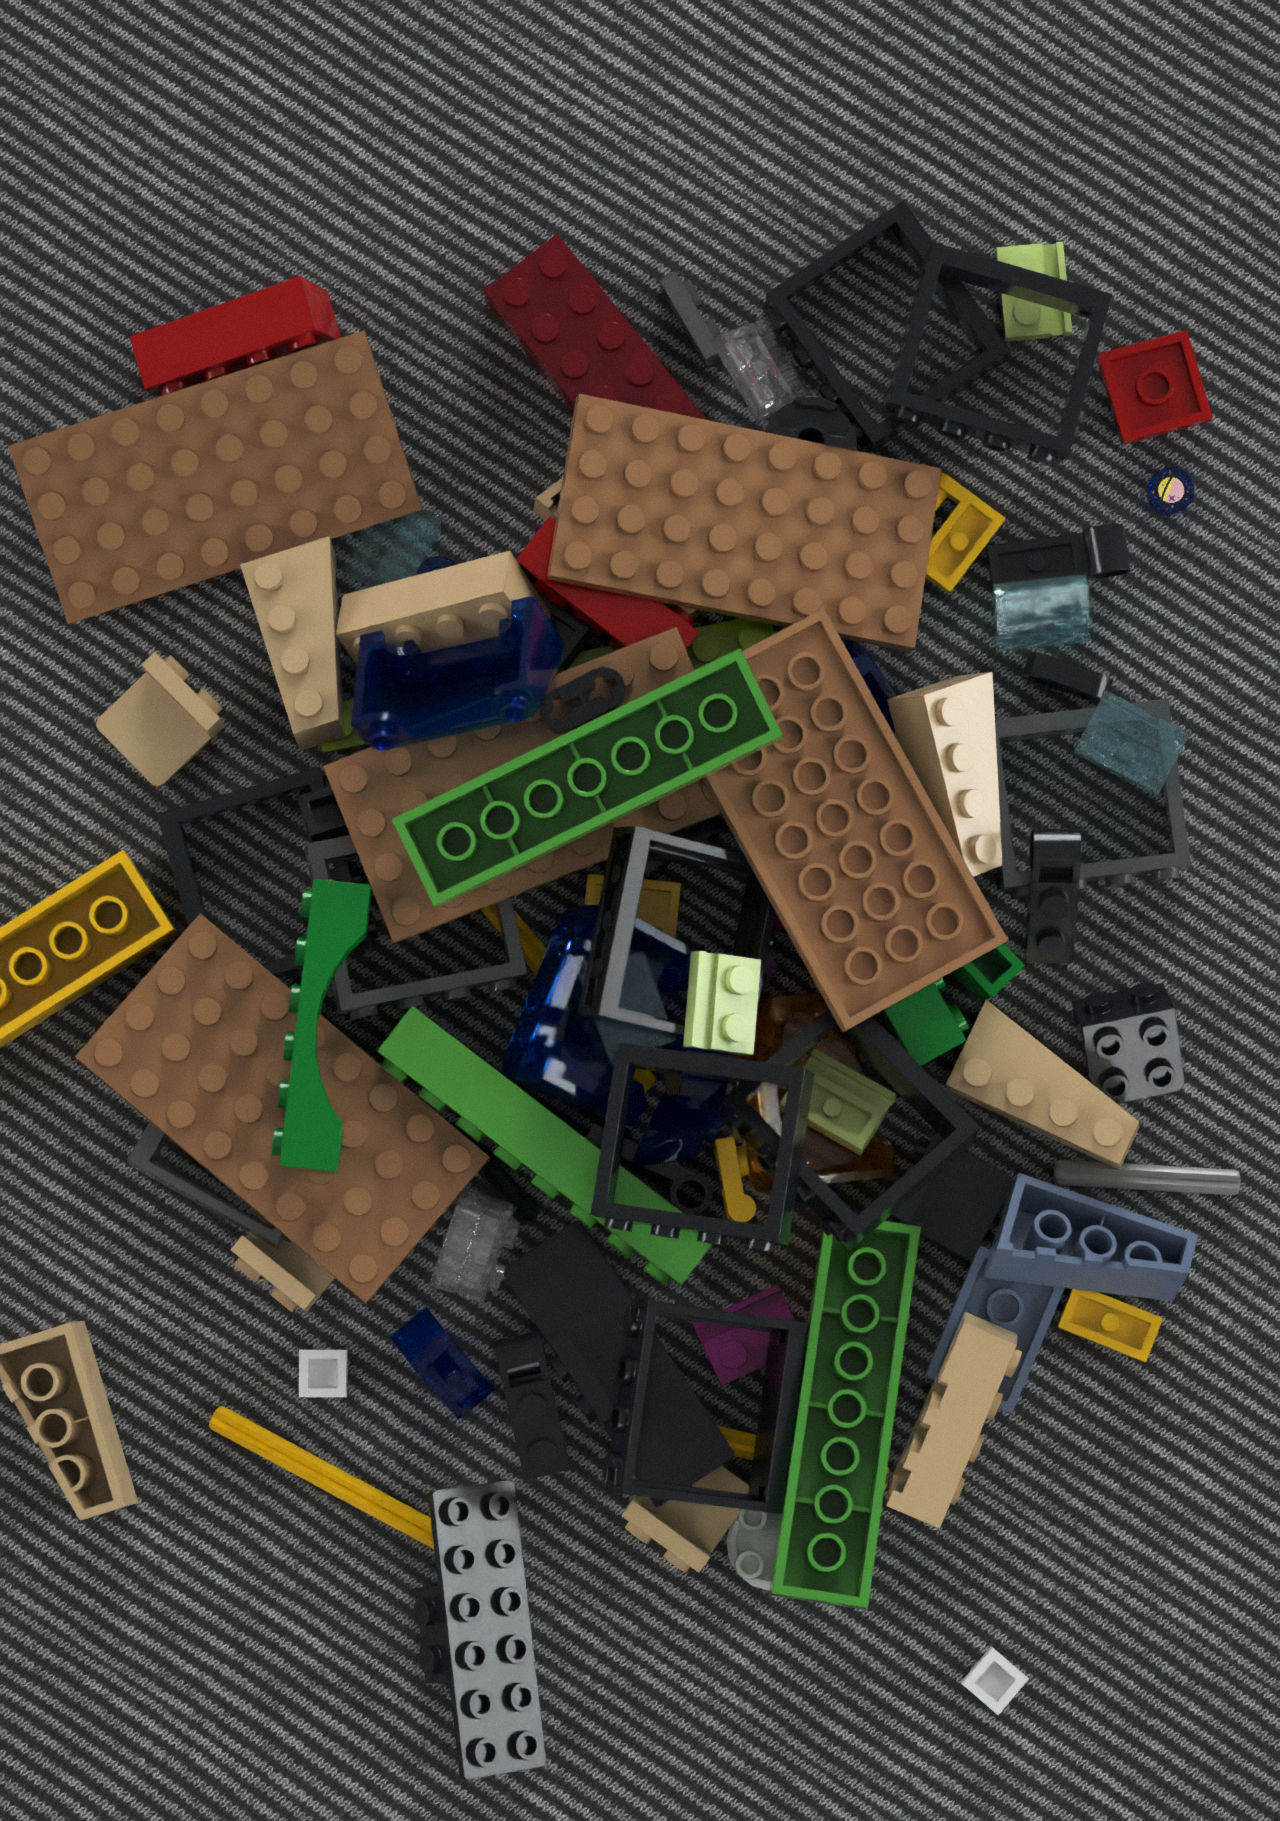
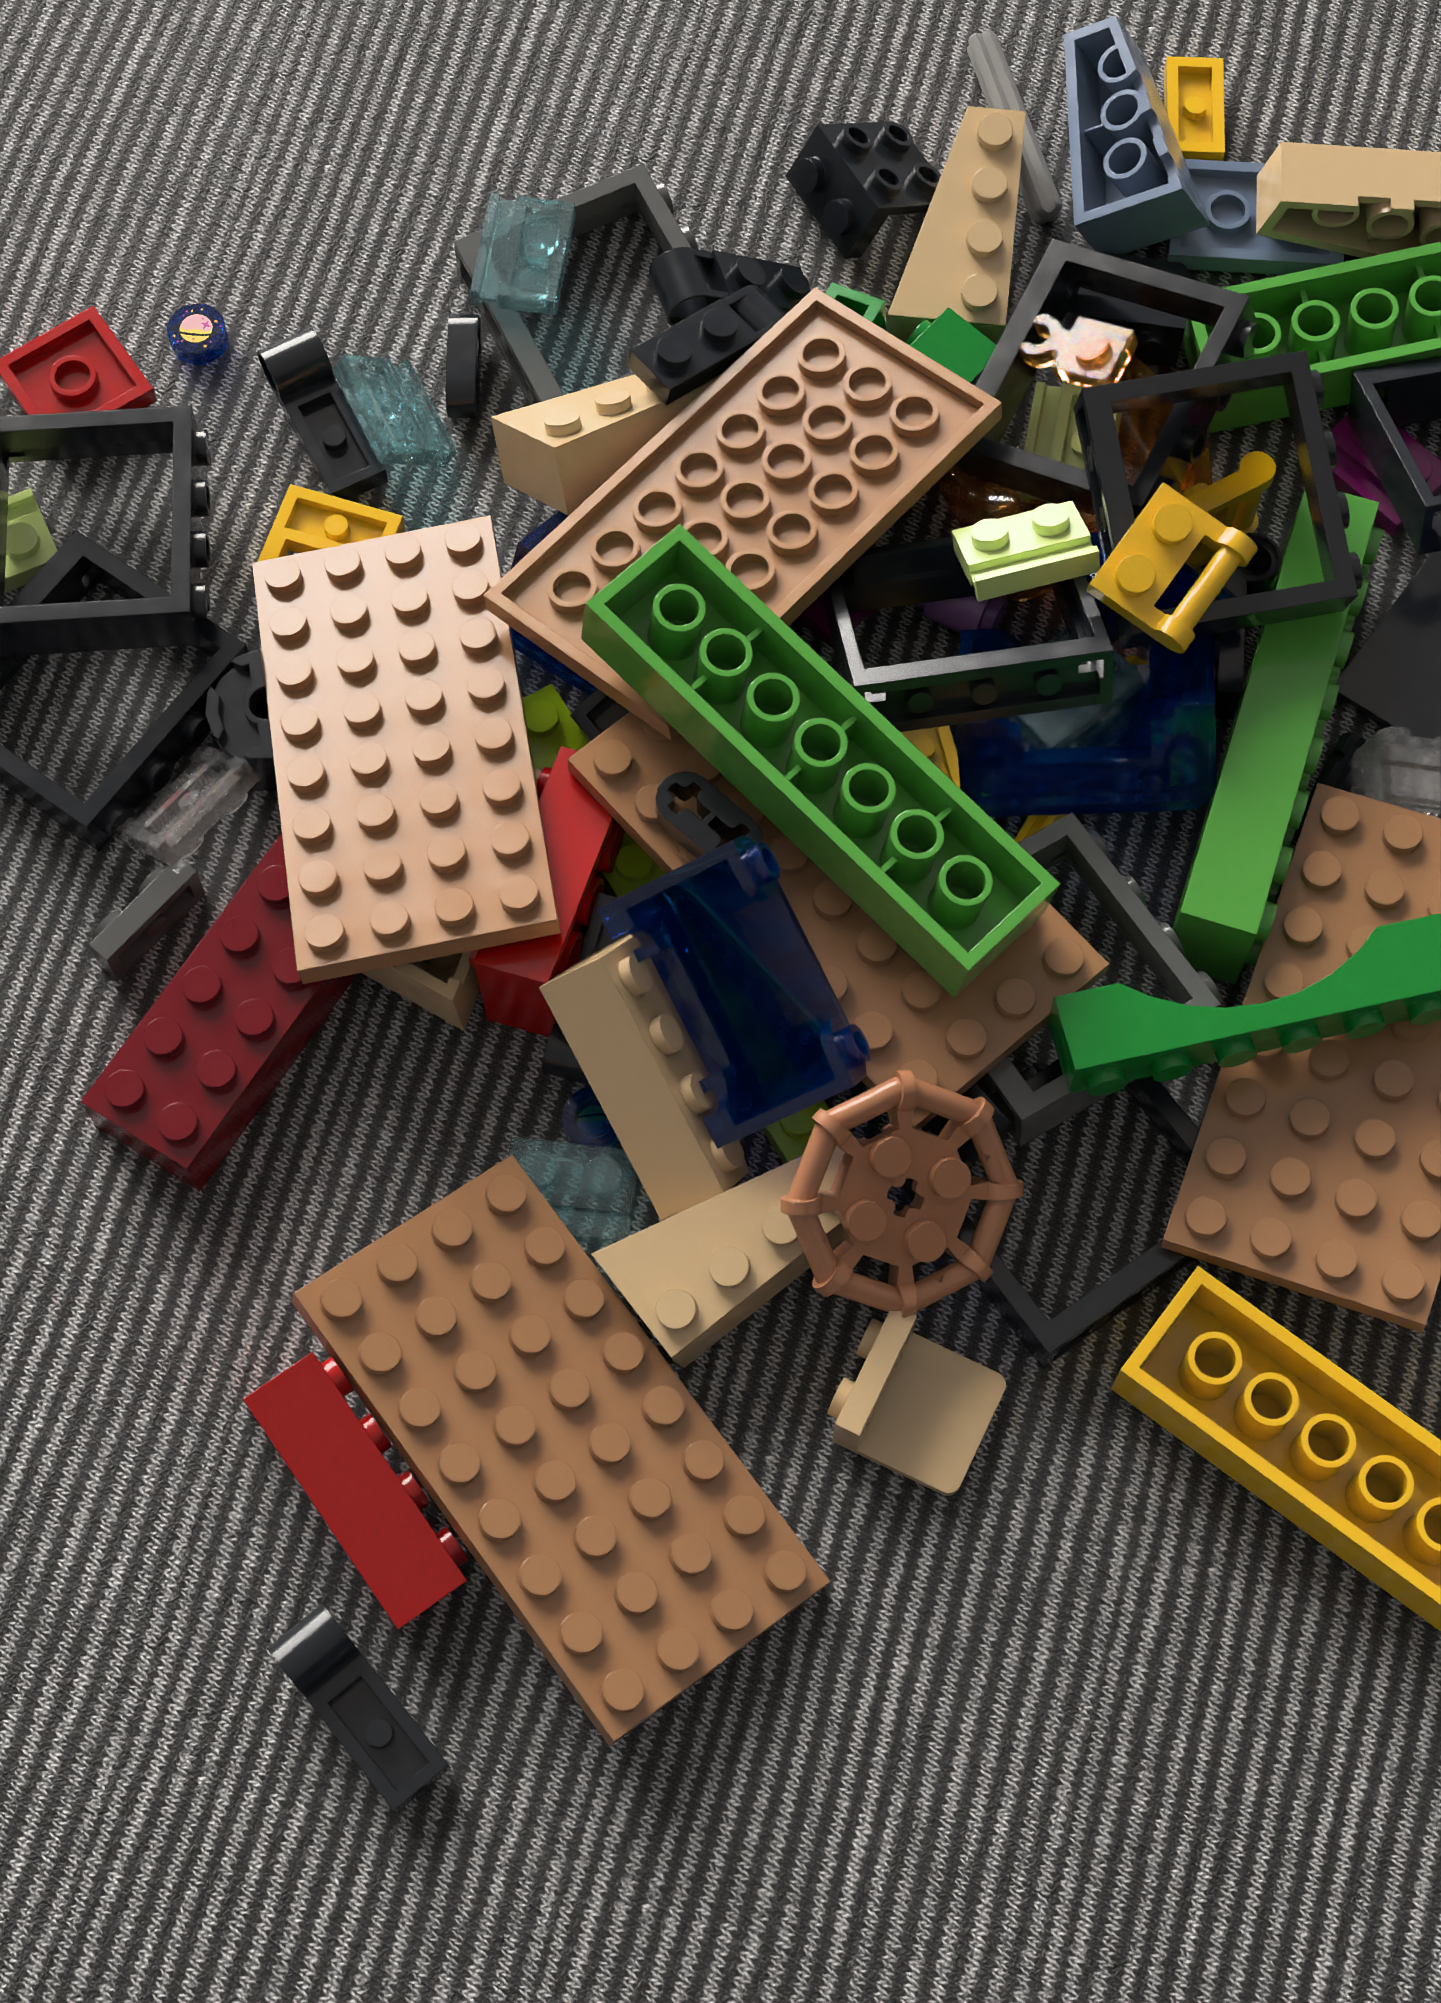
camera: 105 degrees left, 15 degrees down
(97, 301) = (359, 1708): none -> black plate
(259, 749) = (940, 1200): none -> nougat plate
(663, 1074) = (1152, 557): none -> yellow plate
(867, 1109) = (1084, 356): none -> clear orange plate
(988, 847) = (703, 343): none -> black plate

